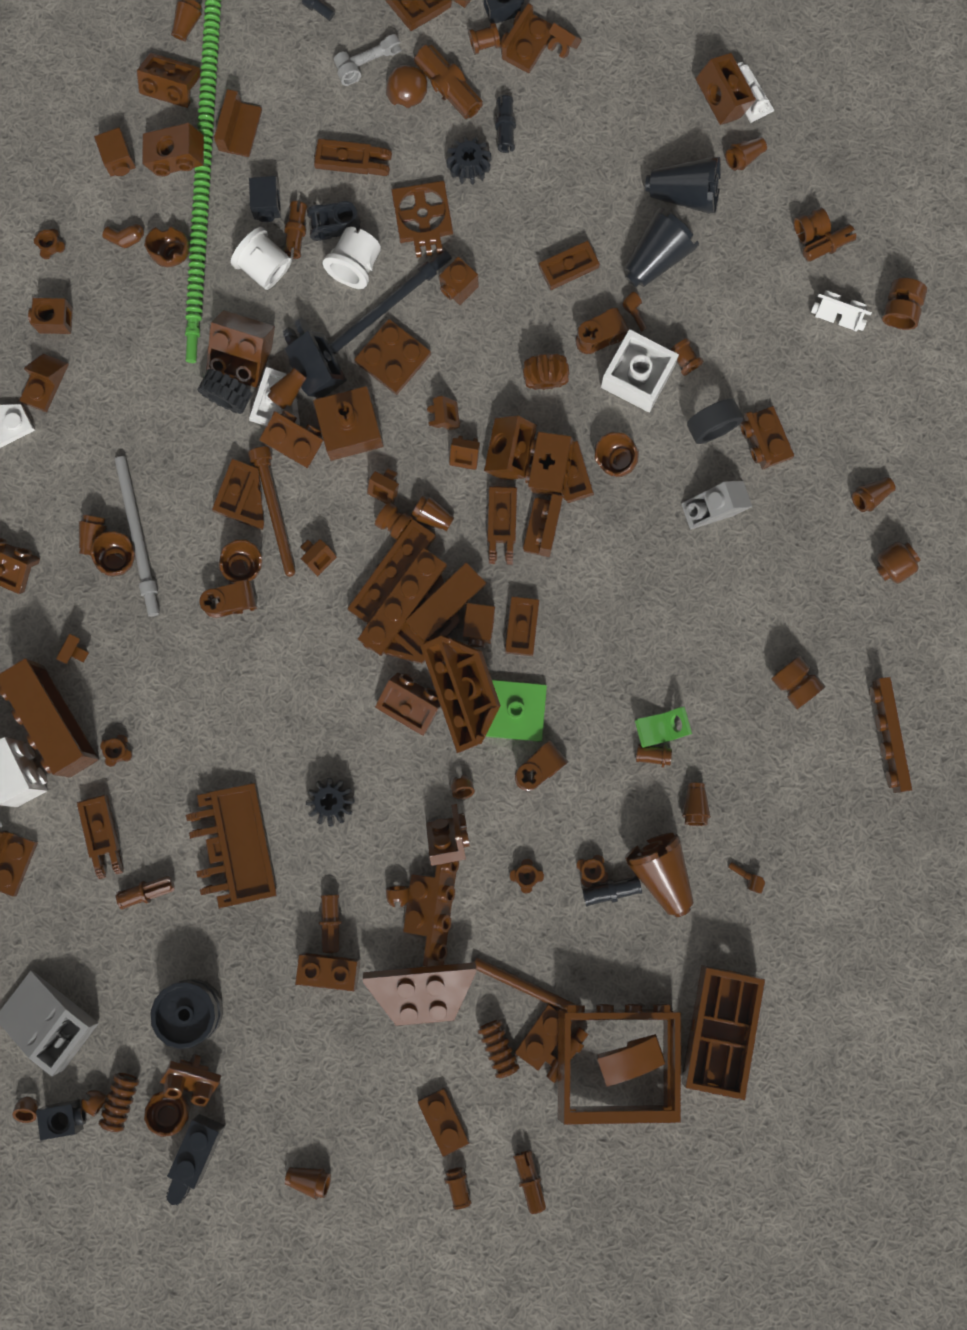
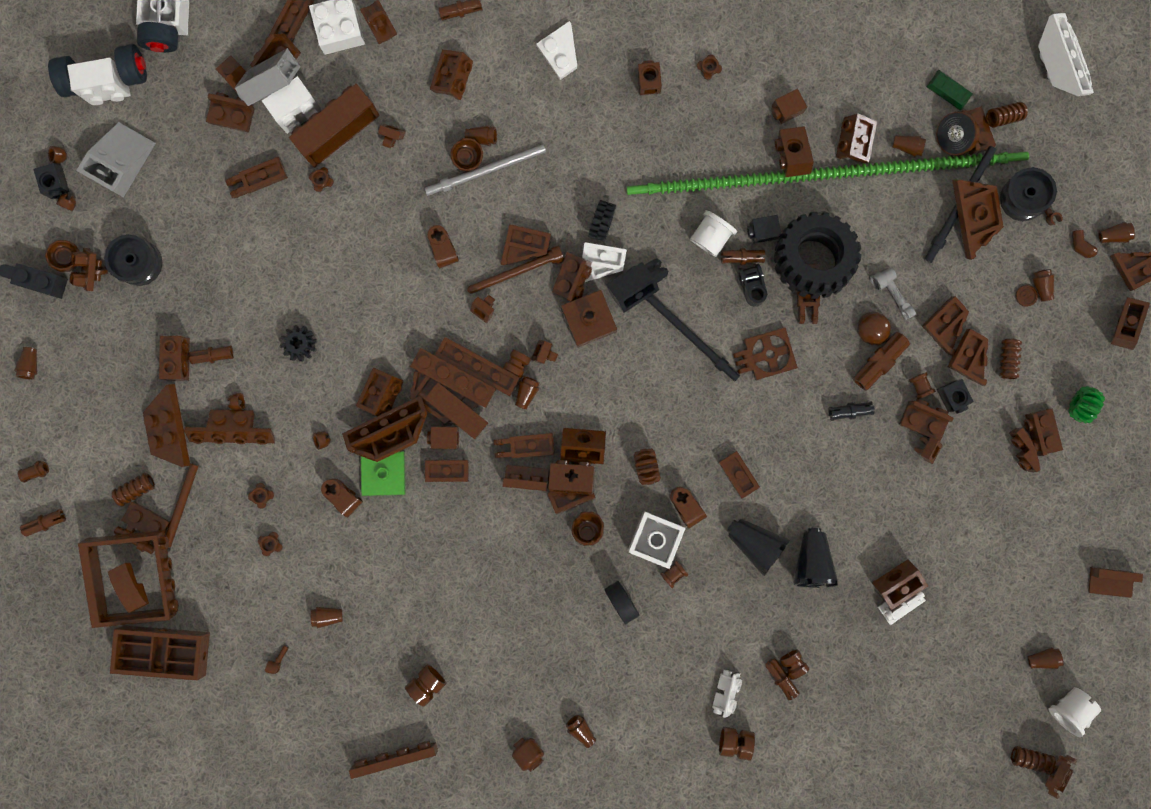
camera: 80 degrees right, 5 degrees up
(44, 381) = (600, 81): reddish brown slope -> none
(118, 1102) = (67, 220): reddish brown piece -> none
(125, 237) = (721, 125): reddish brown arm -> none
(144, 892) = (218, 216): reddish brown axle -> none
(159, 244) = (718, 152): reddish brown hair -> none
(232, 560) = (468, 246): reddish brown hair -> none
(237, 125) = (824, 198): reddish brown panel -> none
(239, 347) = (641, 226): reddish brown slope -> none
(239, 845) = (260, 280): reddish brown hinge -> none
(286, 389) = (607, 267): reddish brown cone -> none
(287, 113) = (832, 234): none -> black tyre
(352, 258) = (722, 305): white piece -> none
(392, 357) = (649, 345): reddish brown plate -> none
(443, 1122) = (78, 455): reddish brown plate -> none
(445, 413) = (606, 392): reddish brown tile -> none
(447, 838) = (278, 432): reddish brown bracket -> none
(458, 281) = (713, 389): reddish brown brick -> none
(464, 453) = (576, 411): reddish brown tile -> none
(468, 169) = (817, 394): black gear -> none
(611, 891) = (255, 560): black pin -> none
(630, 304) = (714, 526): reddish brown hand -> none
(654, 755) = (360, 581): reddish brown pin -> none
(661, 727) = (380, 584): bright green bracket -> none
(663, 872) = (272, 596): reddish brown cone -> none
(717, 504) = (558, 610): light grey slope -> none
(744, 153) = (849, 604): reddish brown cone -> none
(766, 437) = (617, 644): reddish brown bracket -> none

